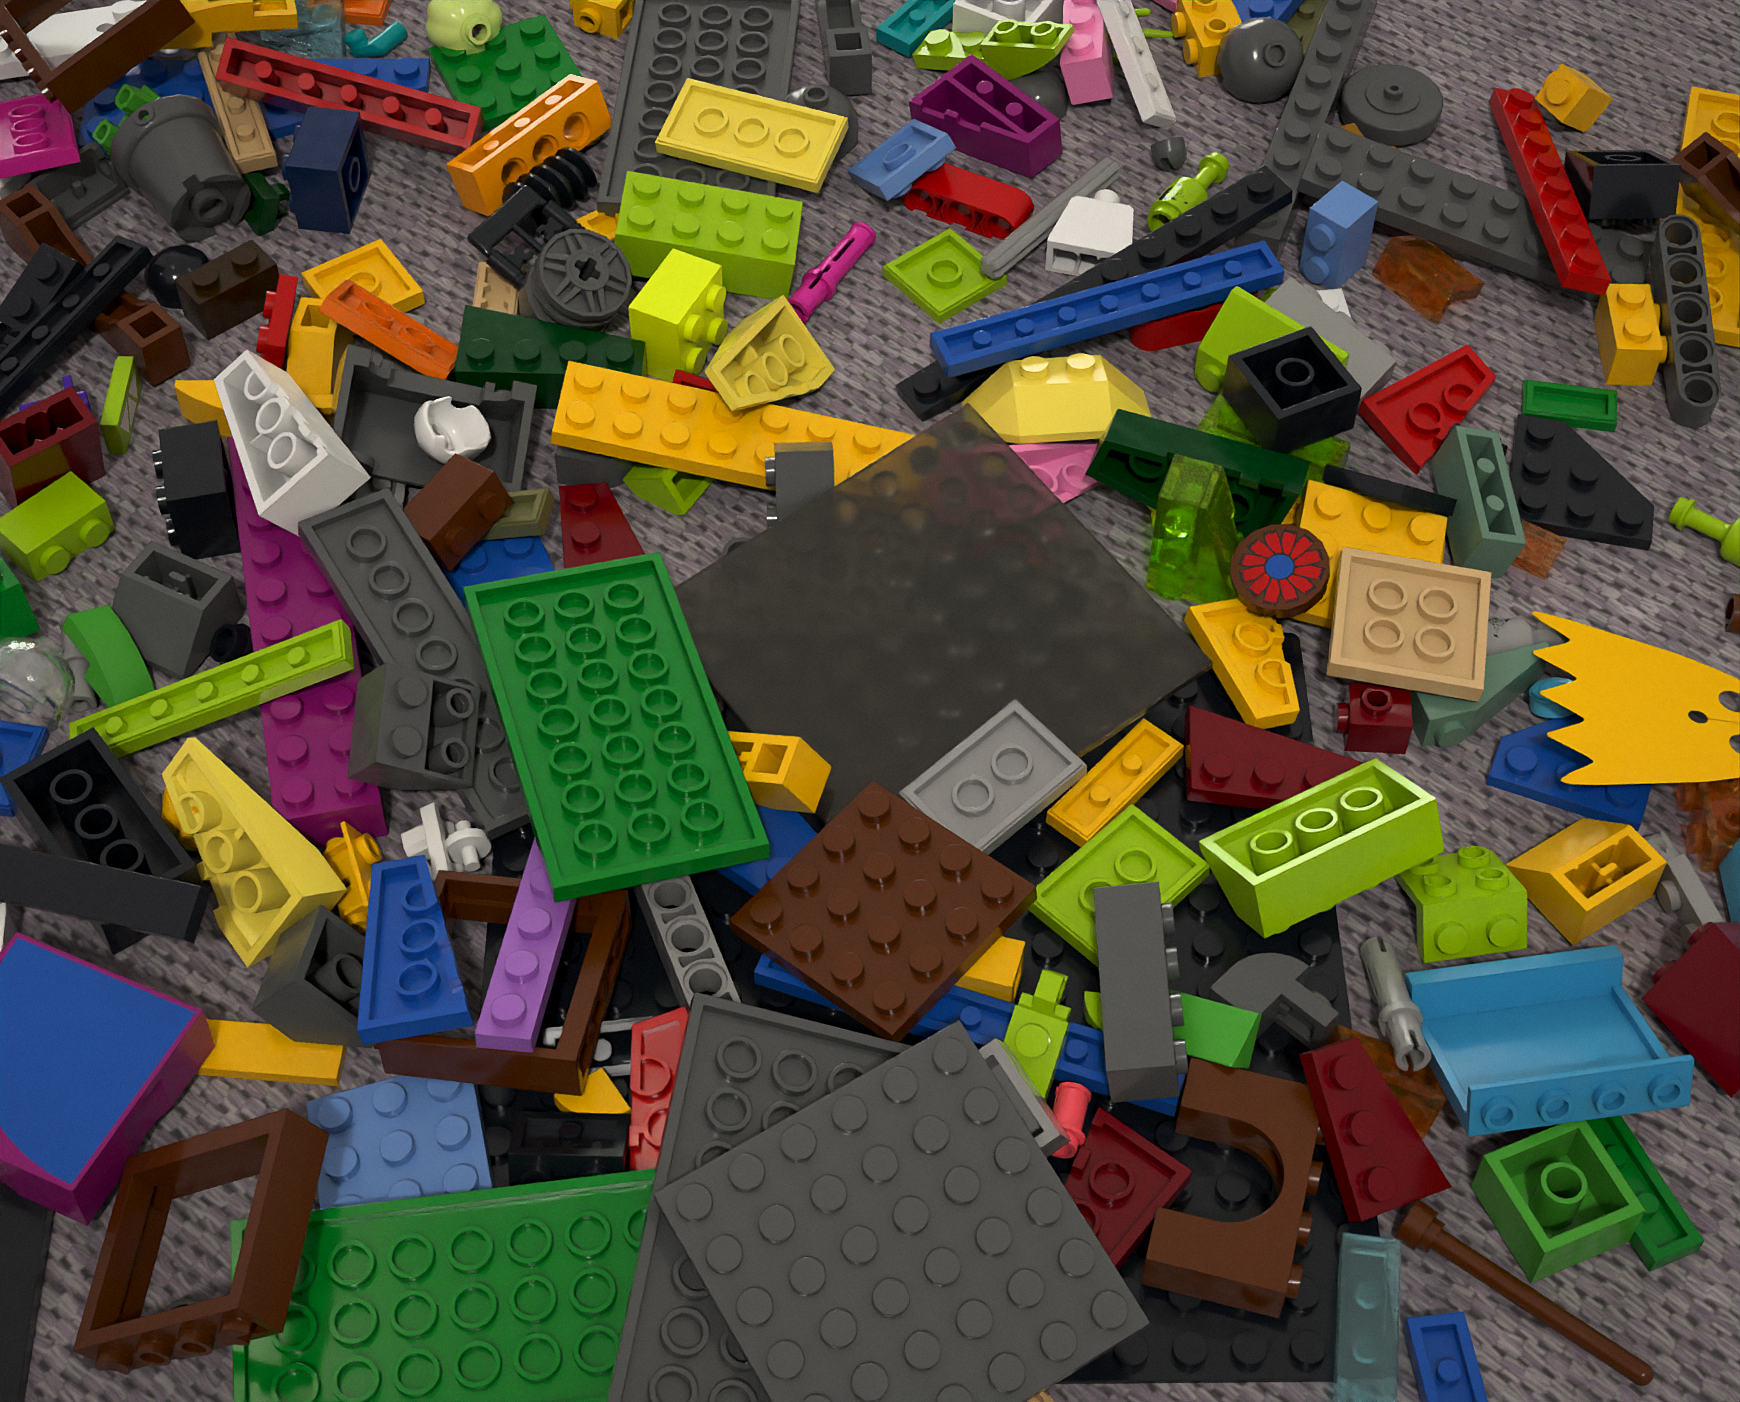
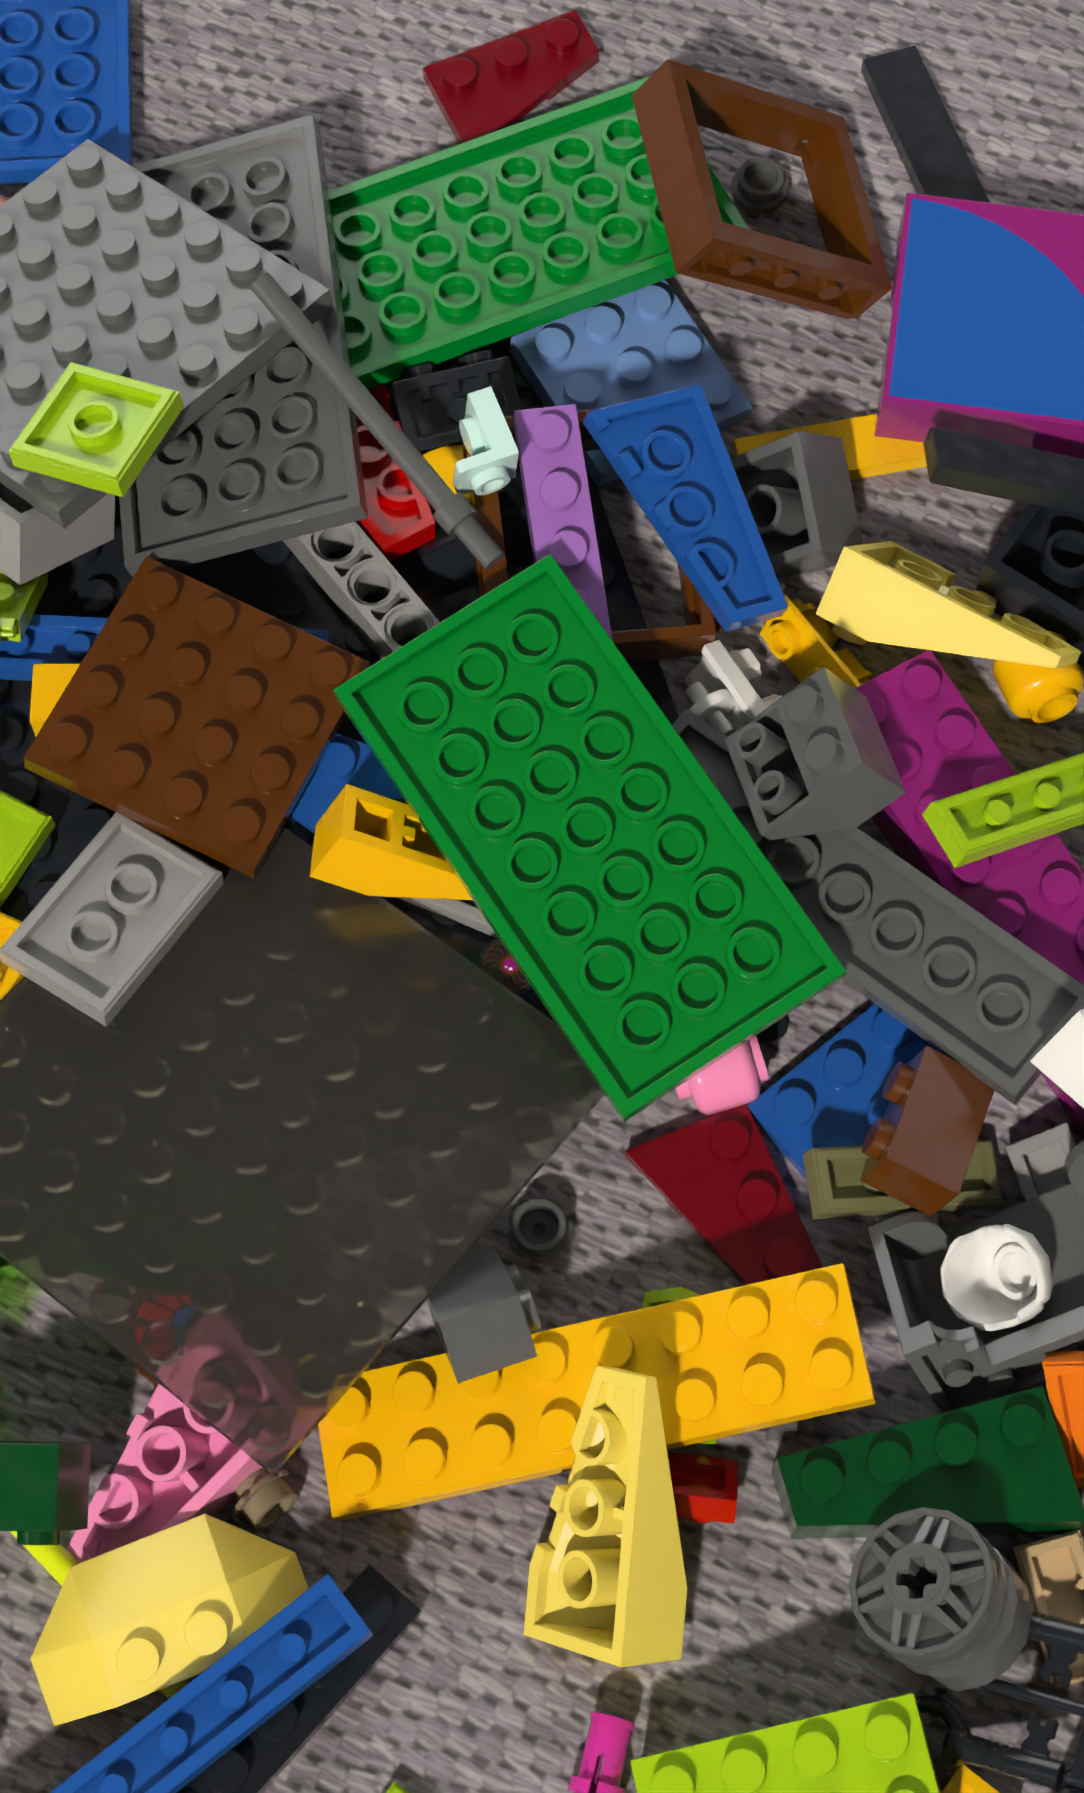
camera: 165 degrees right, 15 degrees up
(567, 1000) = (489, 445): none -> light aqua bracket
(618, 985) = (453, 510): none -> dark grey bar
(679, 314) = (770, 1600): neon yellow brick -> none
(906, 1076) = (96, 429): none -> lime tile

